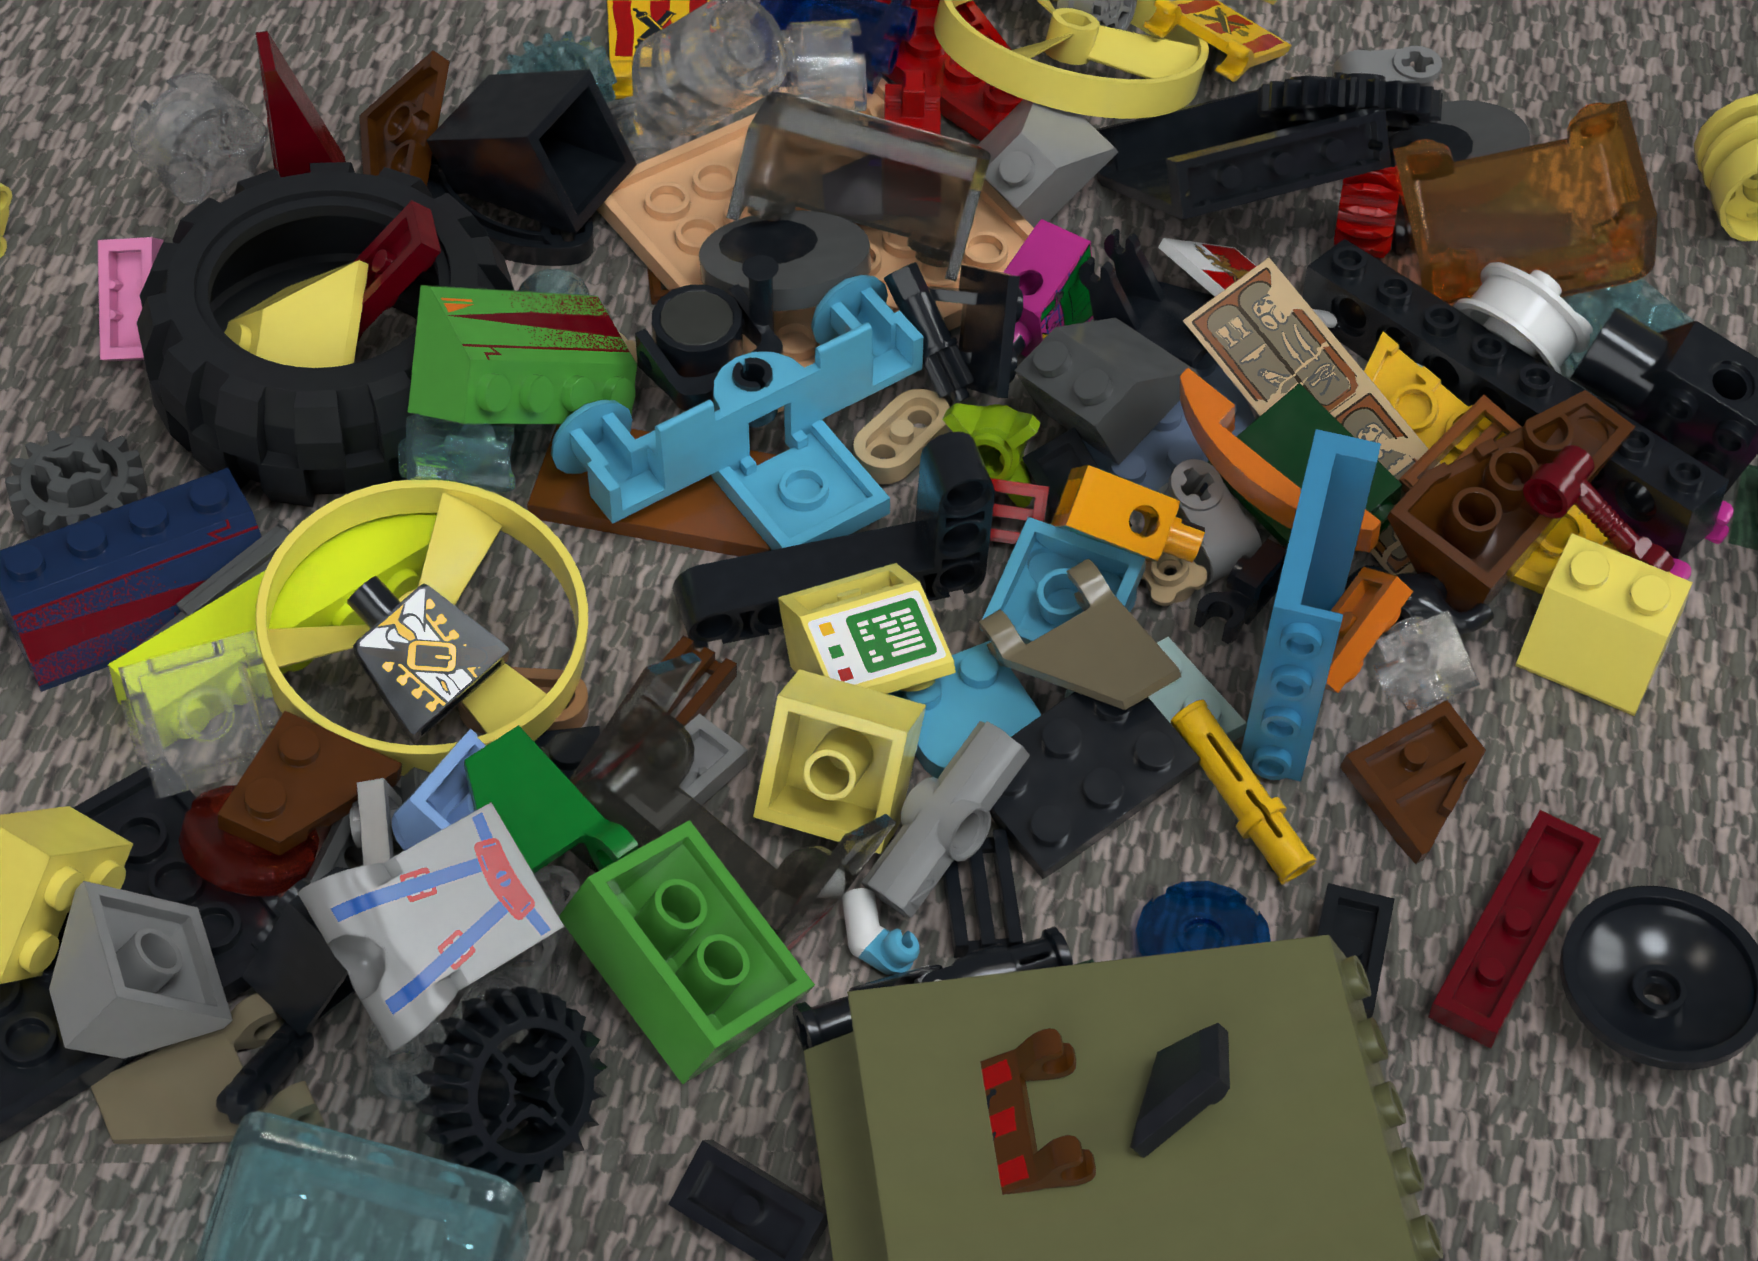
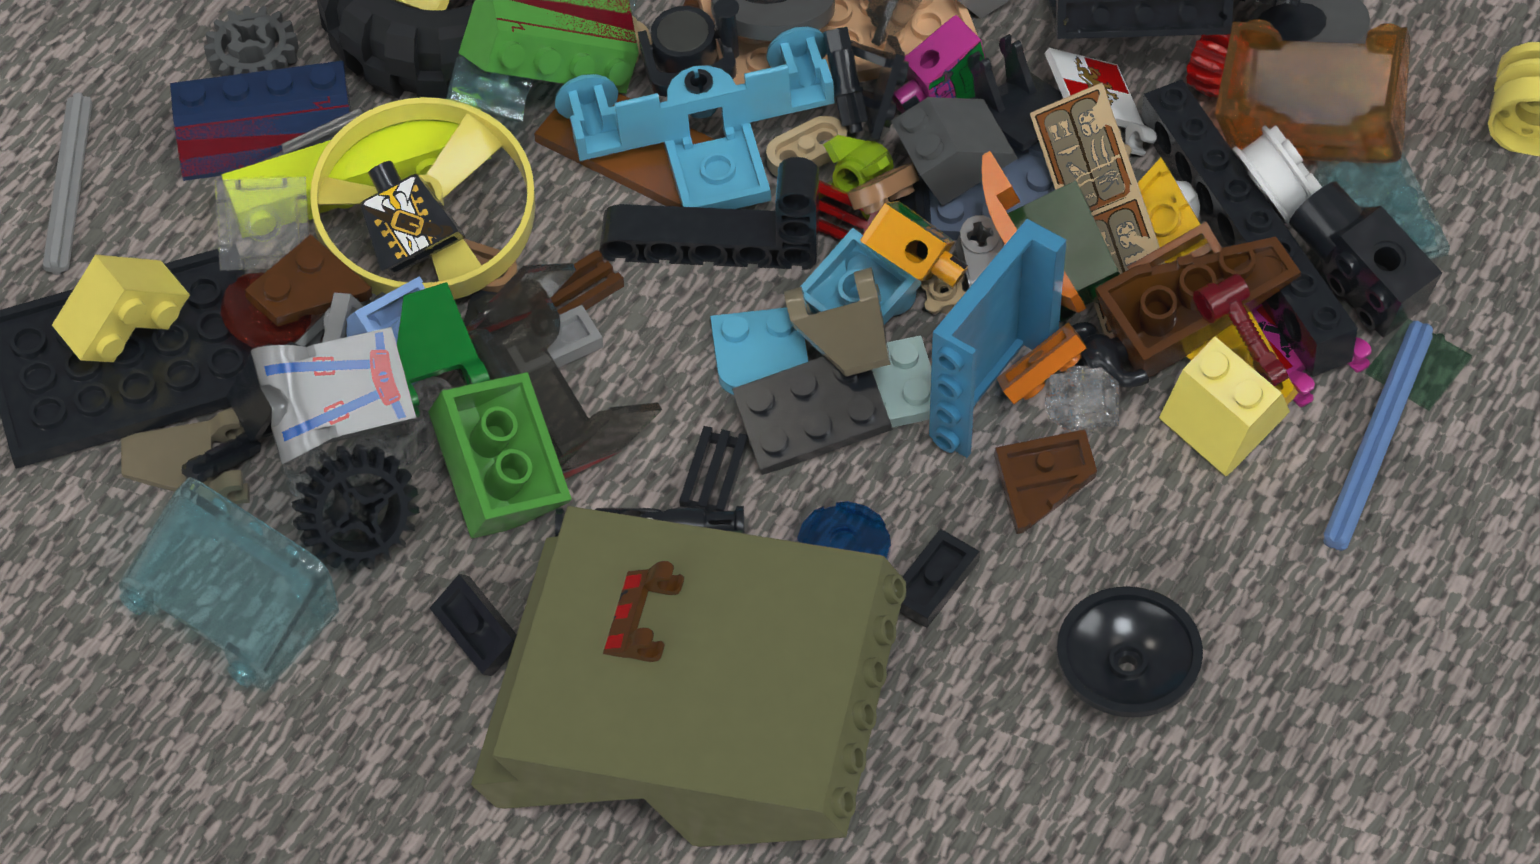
camera: 25 degrees right, 5 degrees up
(134, 974) = (163, 375): light grey slope -> none
(837, 757) = (649, 357): light yellow brick -> none
(867, 632) = (706, 282): slope -> none
(870, 942) = (628, 481): arm -> none
(945, 818) = (702, 416): light grey piece -> none
(1043, 456) = (891, 184): none -> medium nougat plate
(1182, 1085) = (736, 617): black piece -> none
(1257, 812) = (926, 501): yellow pin -> none
(1514, 929) = (1054, 593): dark red plate -> none

